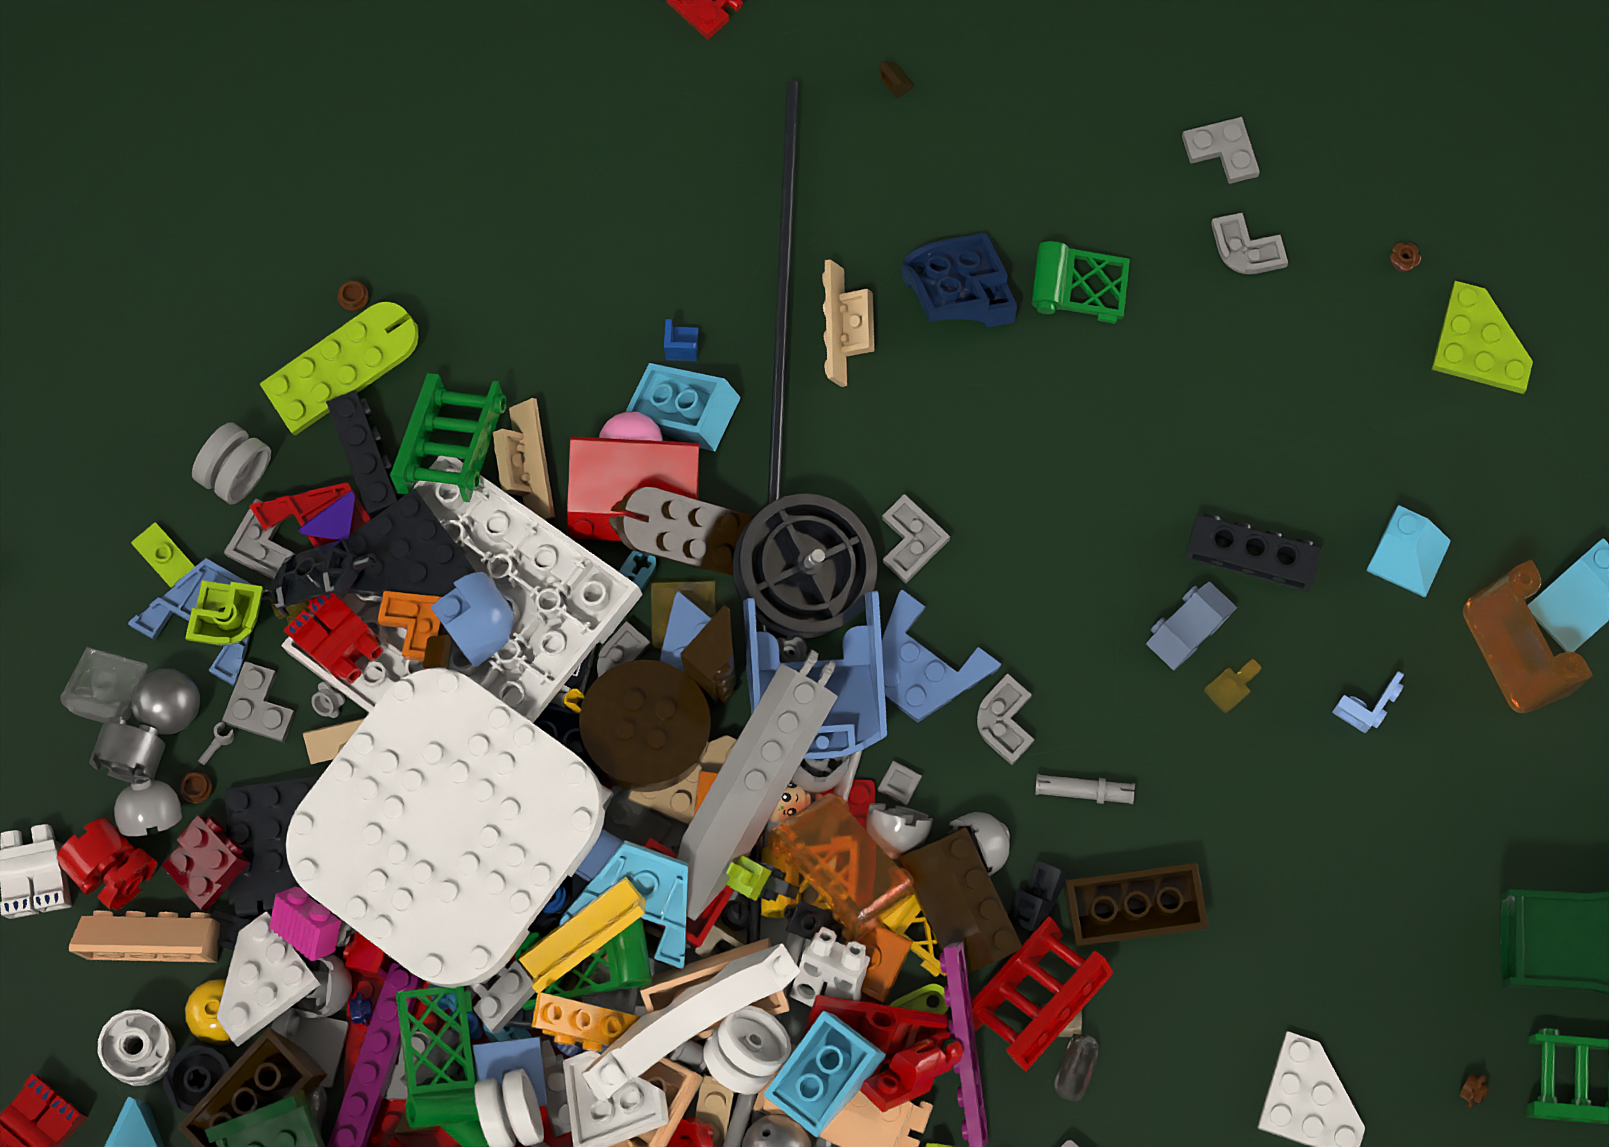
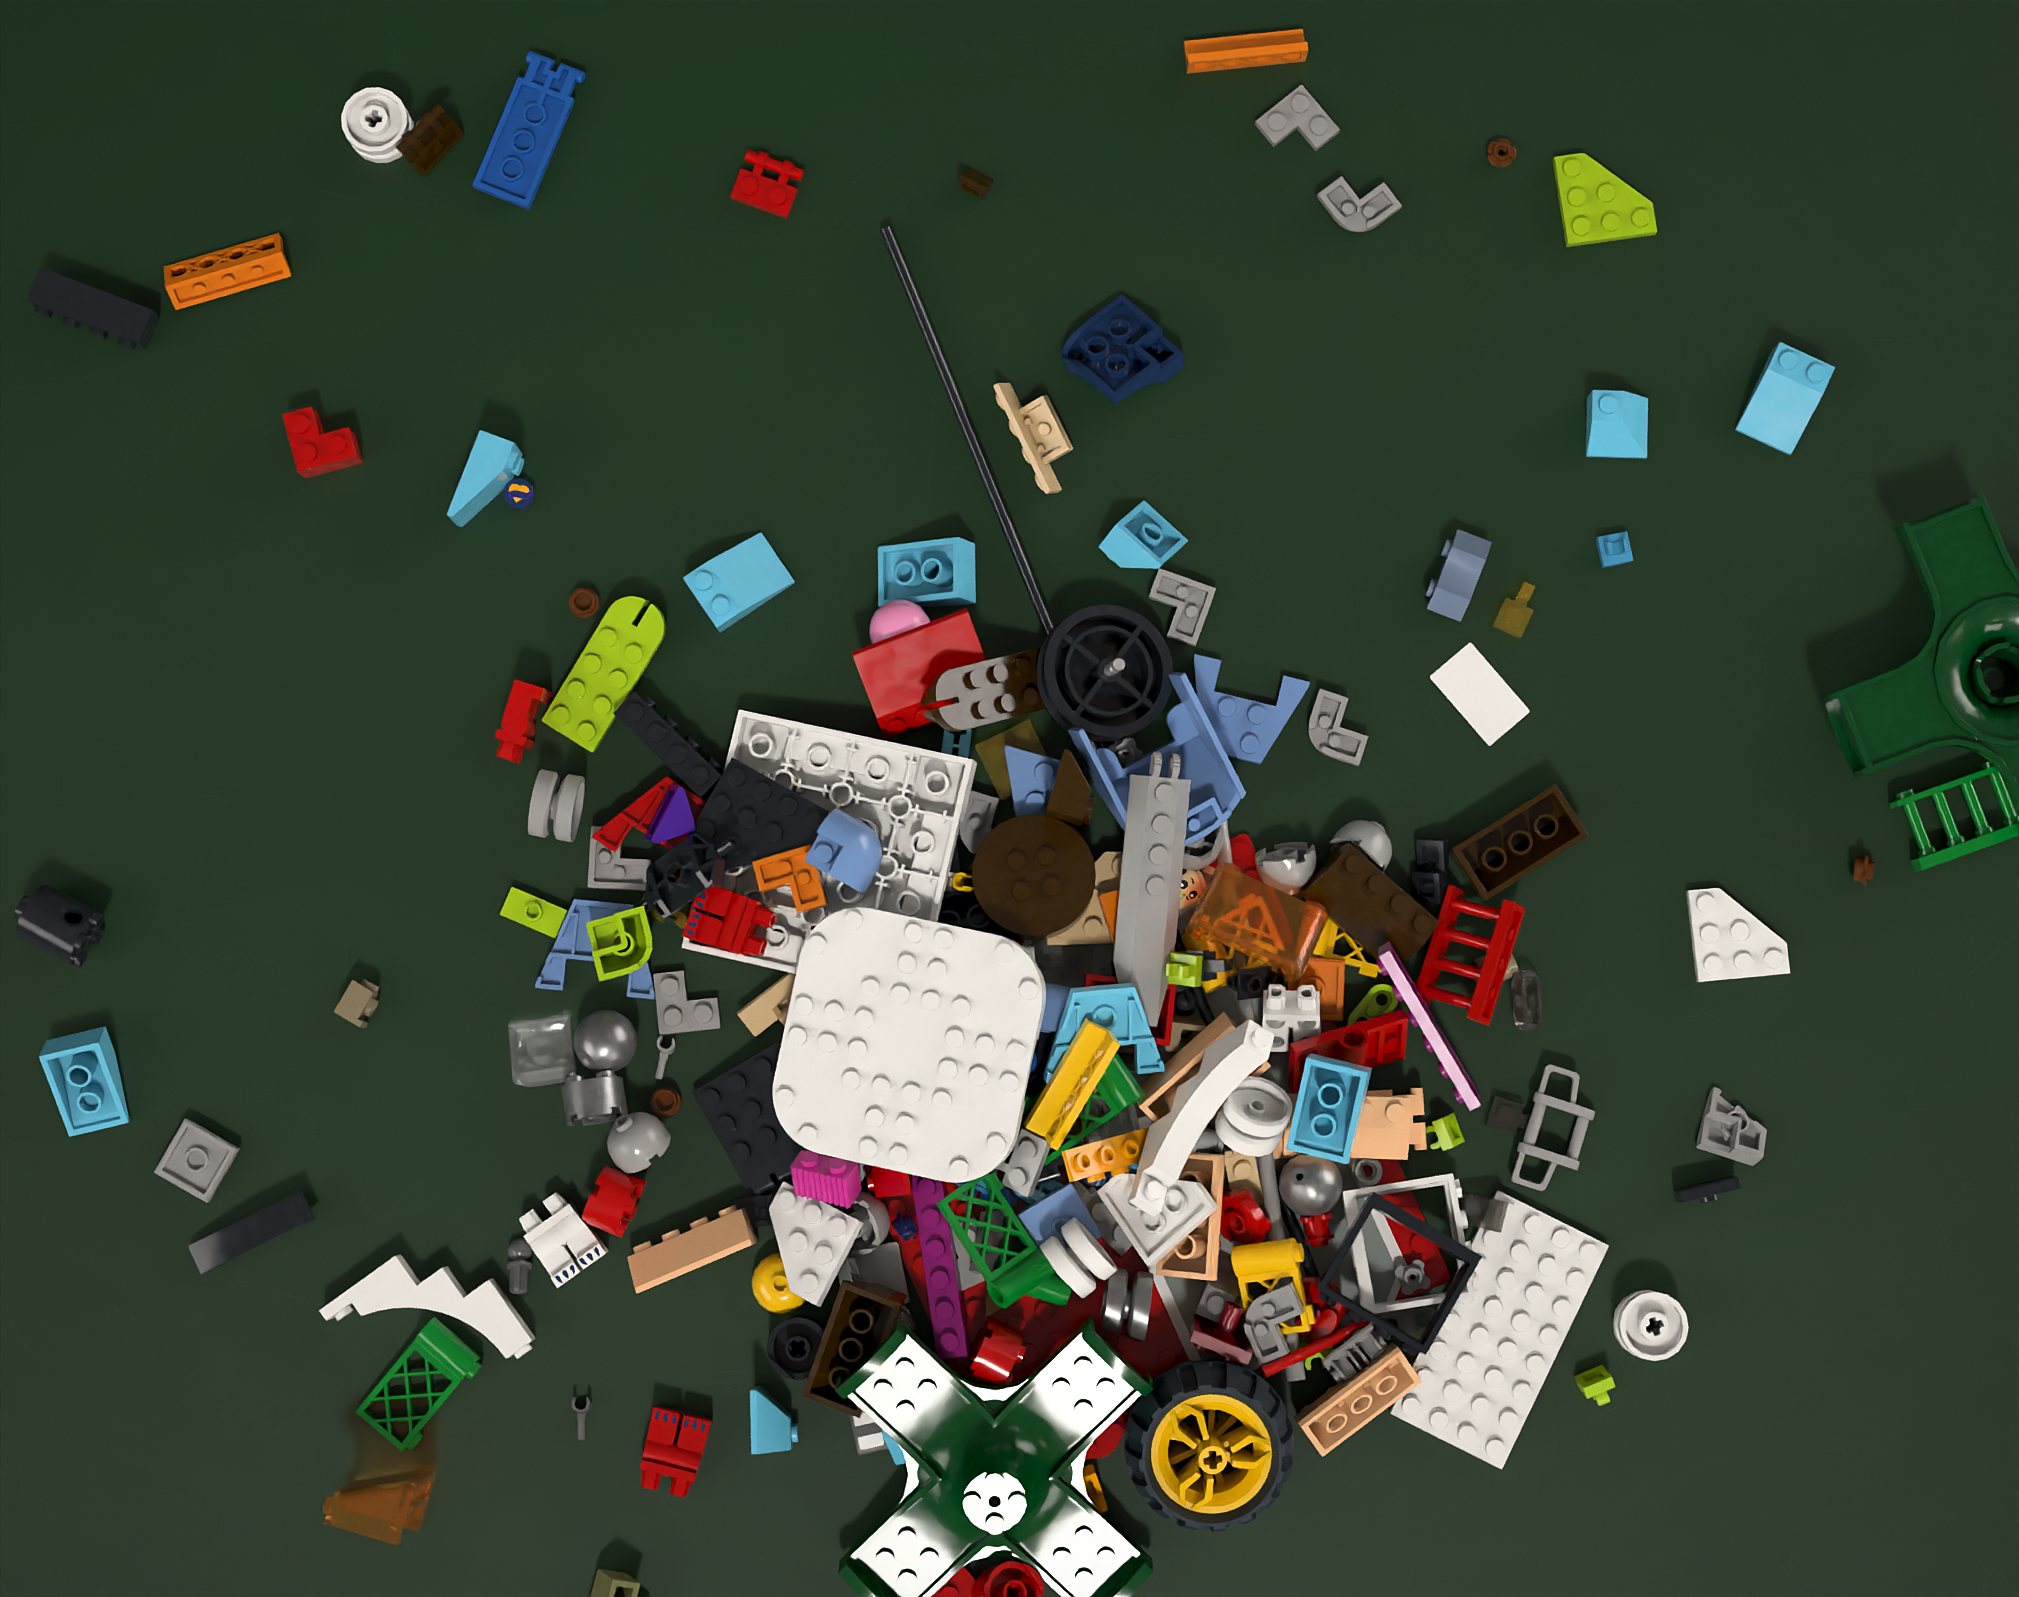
camera: 25 degrees left, 10 degrees up
(118, 1039) = (731, 1365): white wheel -> none
(124, 881) = (649, 1211): red plate -> none
(181, 58) = (319, 452): none -> red brick
(205, 861) = (708, 1162): dark red plate -> none
(238, 372) = (519, 720): none -> red hips
(316, 142) = (486, 474): none -> medium azure slope
(327, 700) = (743, 975): light grey plate -> none
(343, 175) = (519, 494): none -> dark blue tile
(426, 420) = (710, 690): green fence -> none
(437, 652) = (830, 897): dark brown slope -> none
(503, 337) = (738, 581): none -> medium azure slope
(523, 459) = (811, 685): tan bracket -> none
(680, 342) = (898, 516): blue panel -> none
(899, 783) = (1269, 824): light grey tile -> none
(900, 459) = (1142, 539): none -> medium azure slope
(912, 1072) = (1398, 1072): red plate -> none
(1055, 275) = (1202, 310): green piece -> none
(1085, 789) = (1429, 759): light grey pin -> none
(1163, 749) = (1479, 694): none -> white sticker
(1201, 67) = (1245, 51): none -> orange fence
(1235, 558) = (1438, 500): black brick -> none
(1355, 711) = (1629, 588): light blue bracket -> none
(1356, 669) = (1614, 549): none -> dark azure tile
(1515, 645) = (1742, 469): clear orange windscreen -> none

